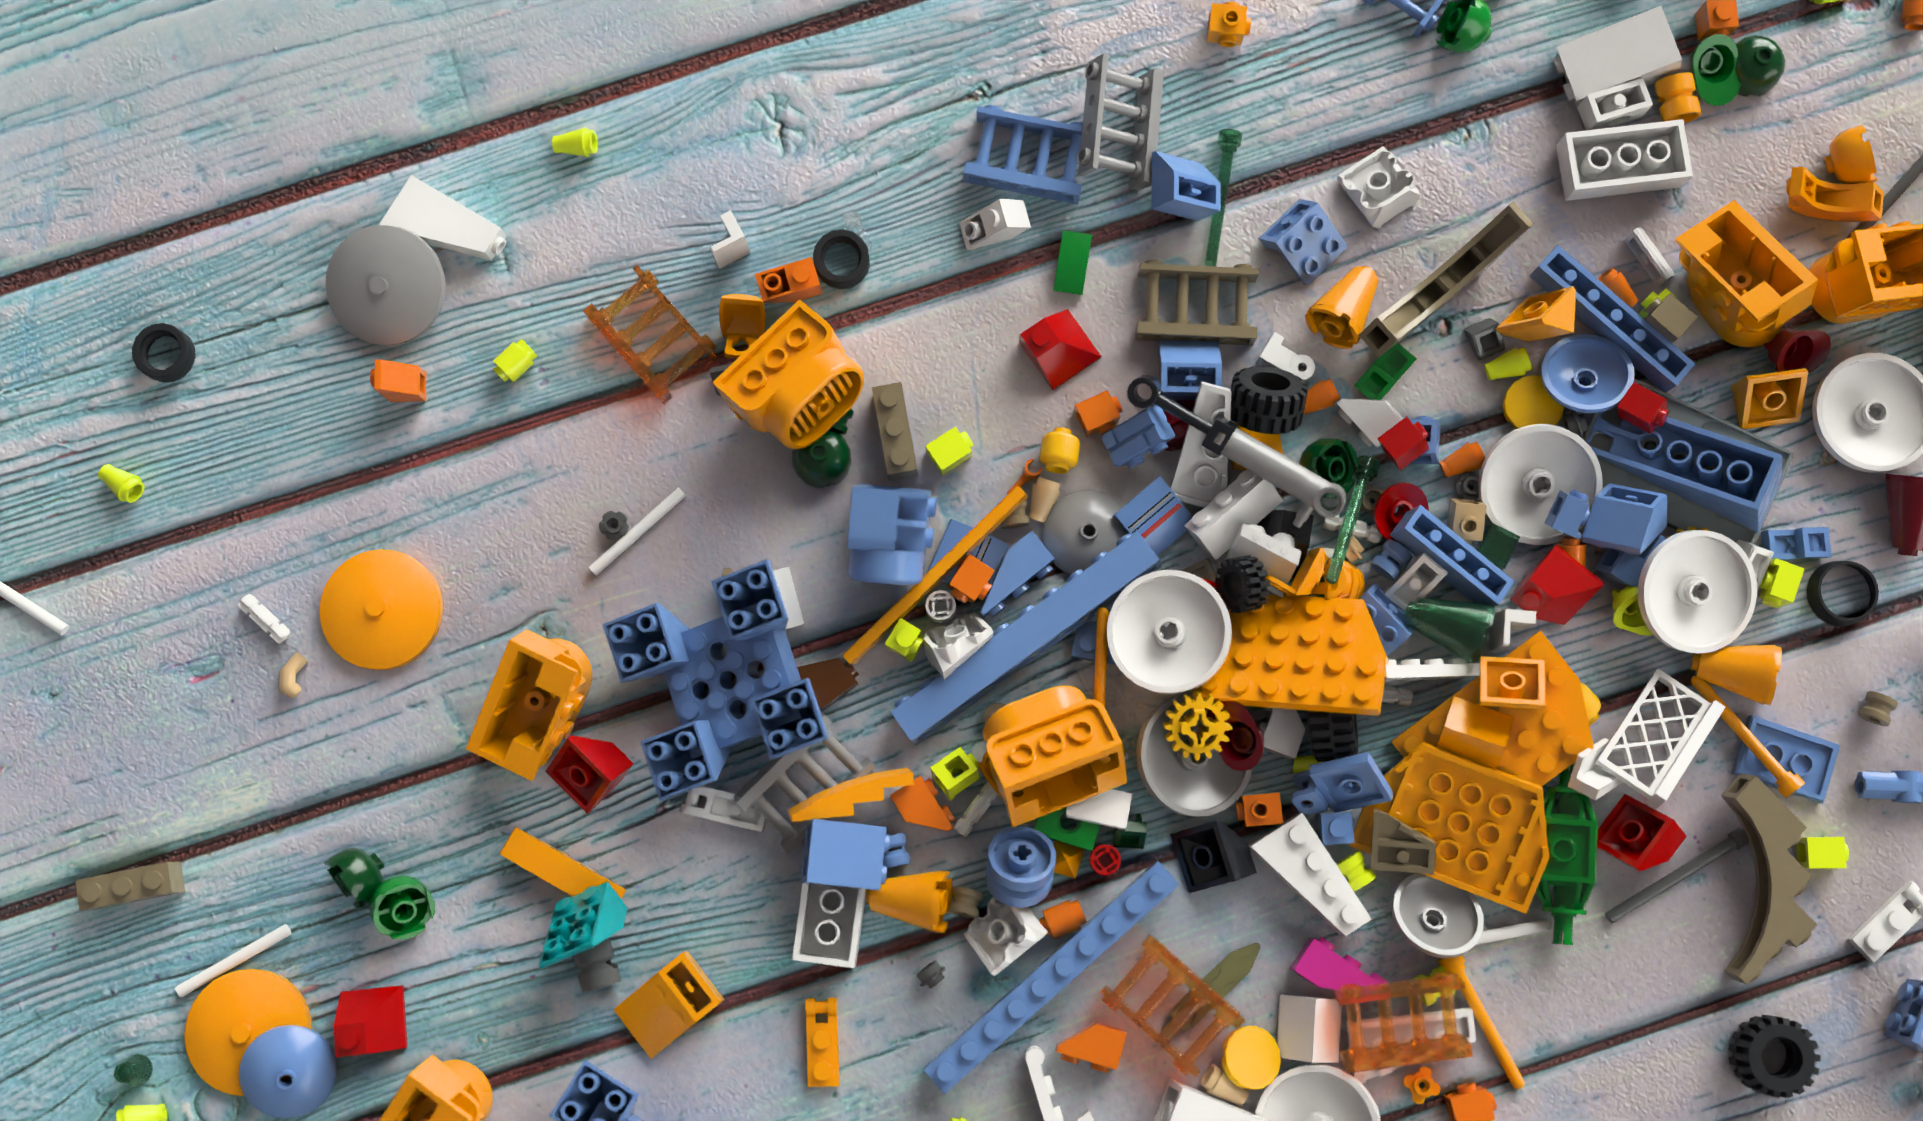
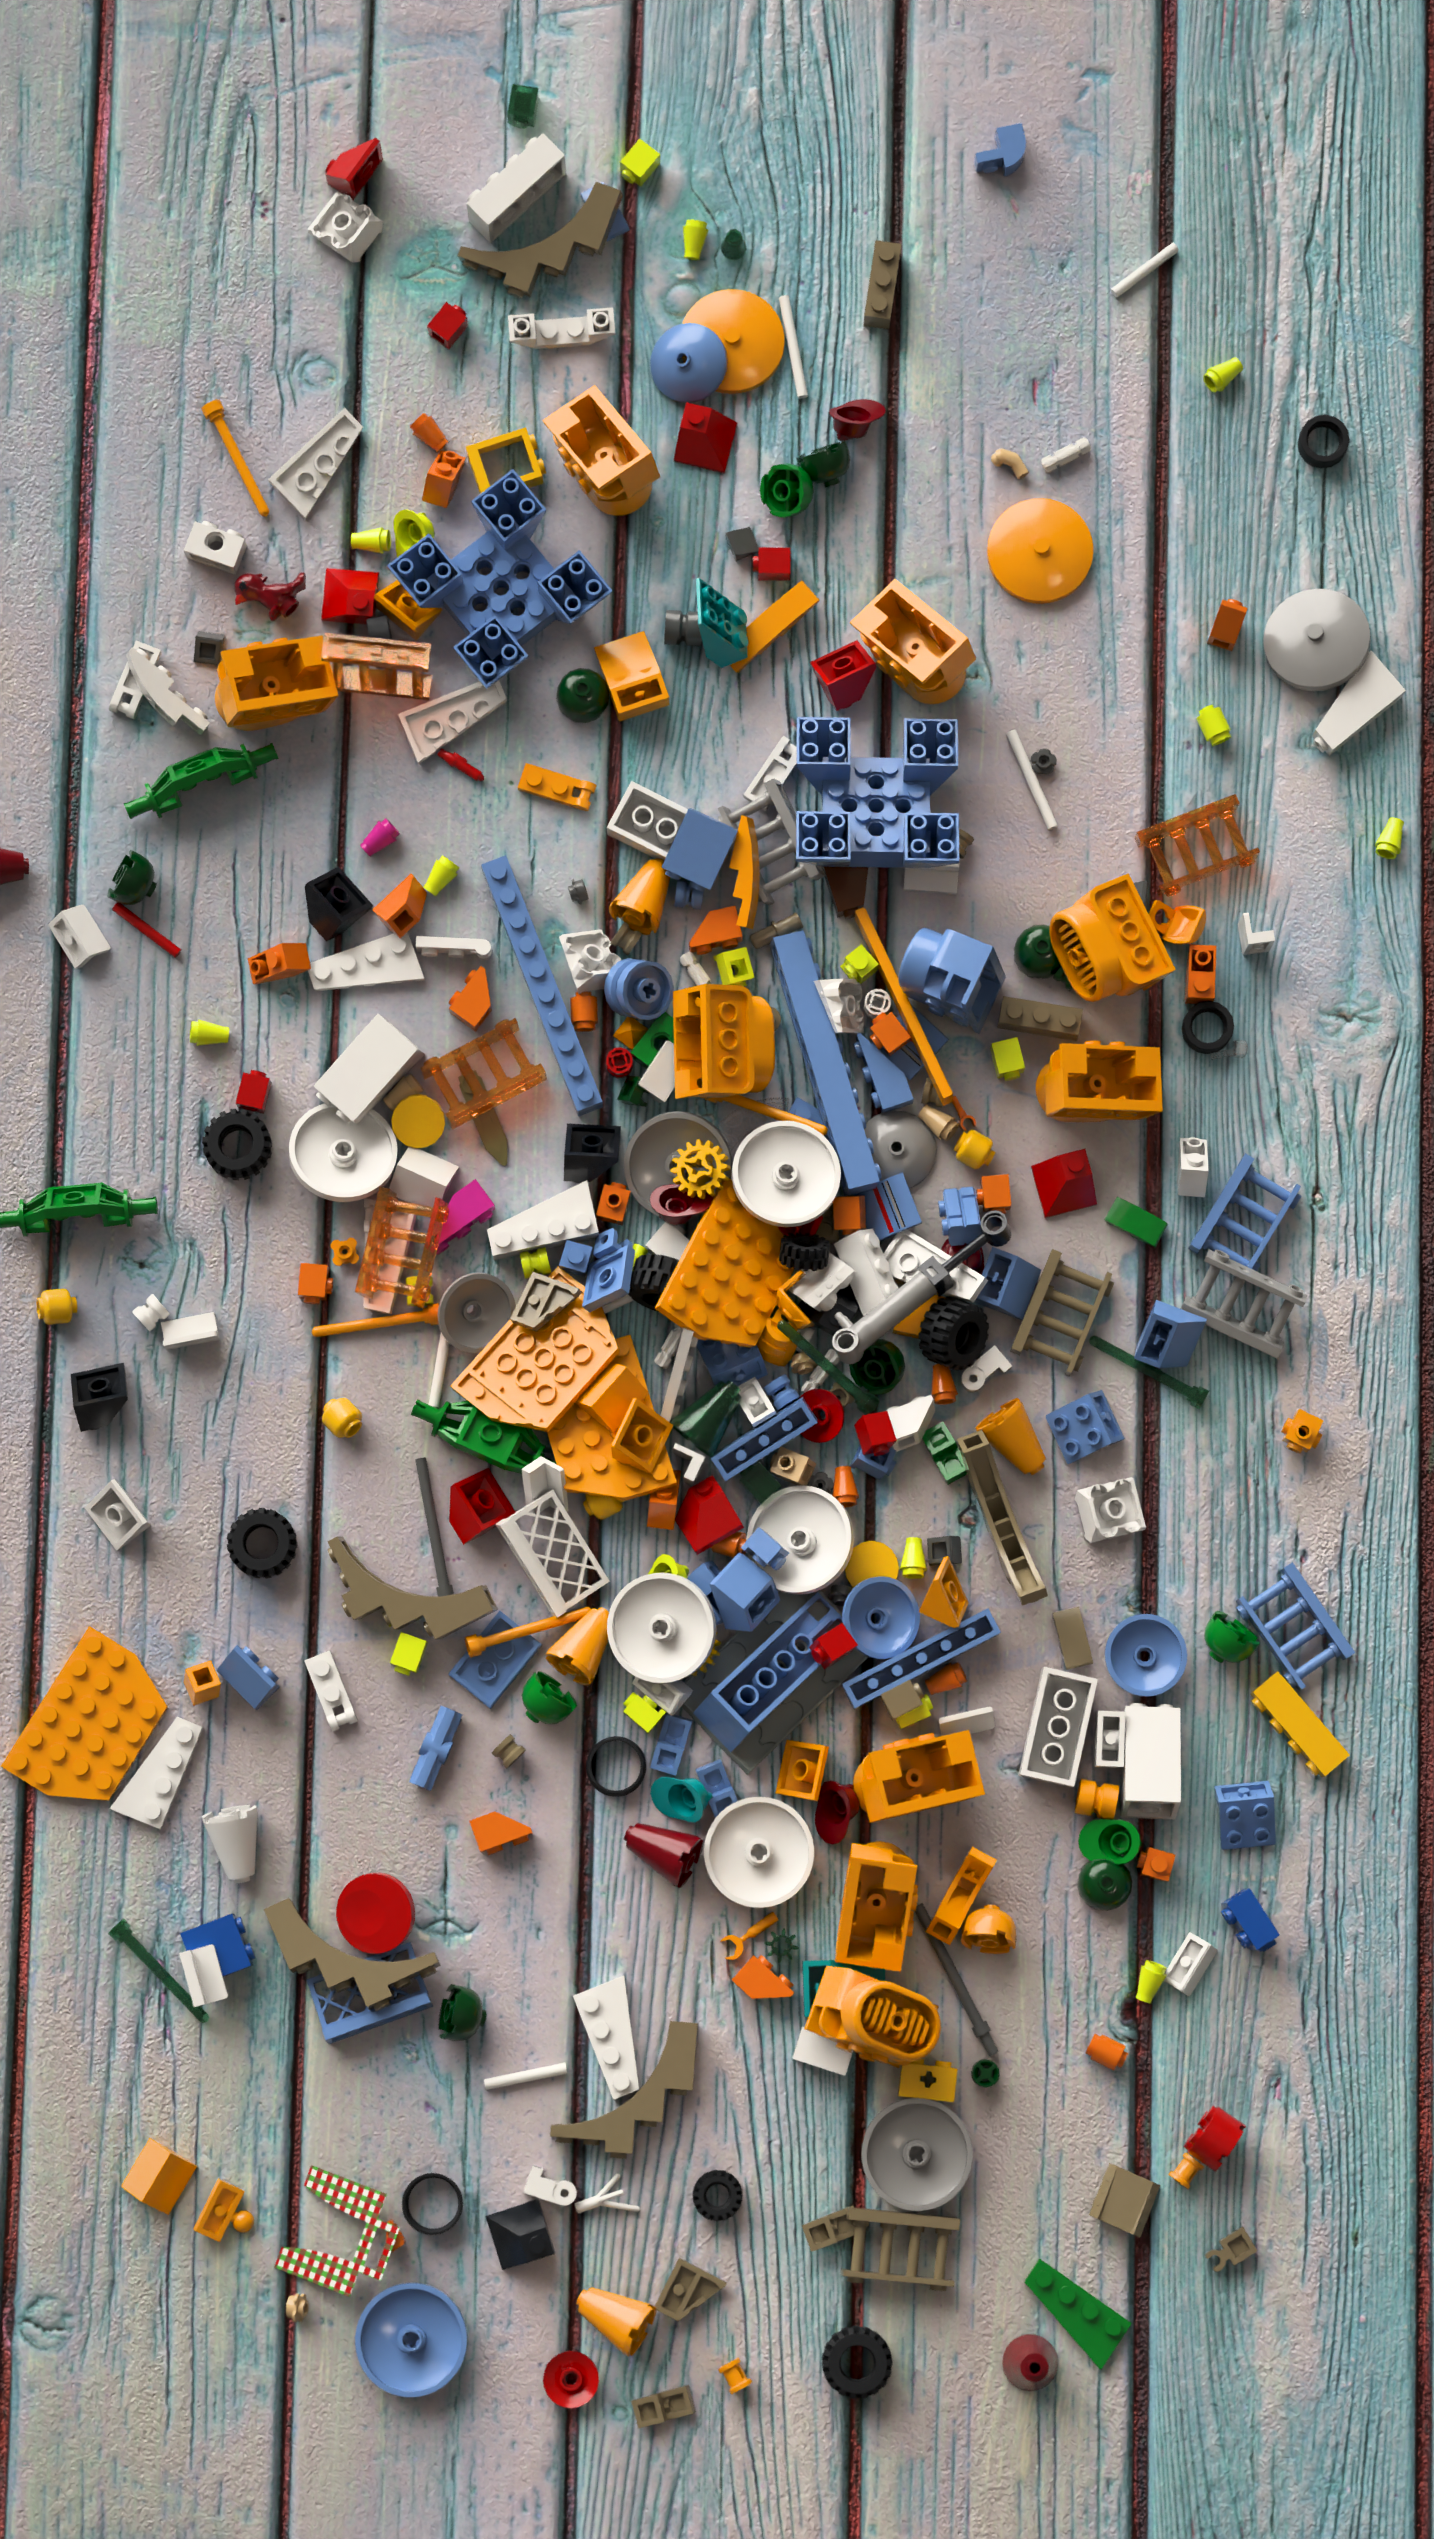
camera: 105 degrees right, 0 degrees up
(294, 861) = (855, 417): none -> dark red piece
(477, 936) = (741, 543): none -> dark grey slope
(490, 893) = (772, 564): none -> red brick
(709, 1051) = (582, 695): none -> dark green cylinder
(898, 743) = (776, 929): none -> dark tan axle
(946, 341) = (1101, 1082): none -> light orange brick
(1179, 553) = (849, 1213): none -> orange brick
(1524, 179) = (1072, 1638): none -> dark tan slope
(1526, 85) = (1165, 1650): none -> medium blue dish
(1565, 637) = (663, 1506): none -> orange slope
(1603, 1019) = (342, 1417): none -> yellow head
(1810, 687) = (545, 1700): none -> green cylinder
(1821, 481) = (717, 1782): none -> medium blue slope
(1851, 508) = (680, 1798): none -> teal piece

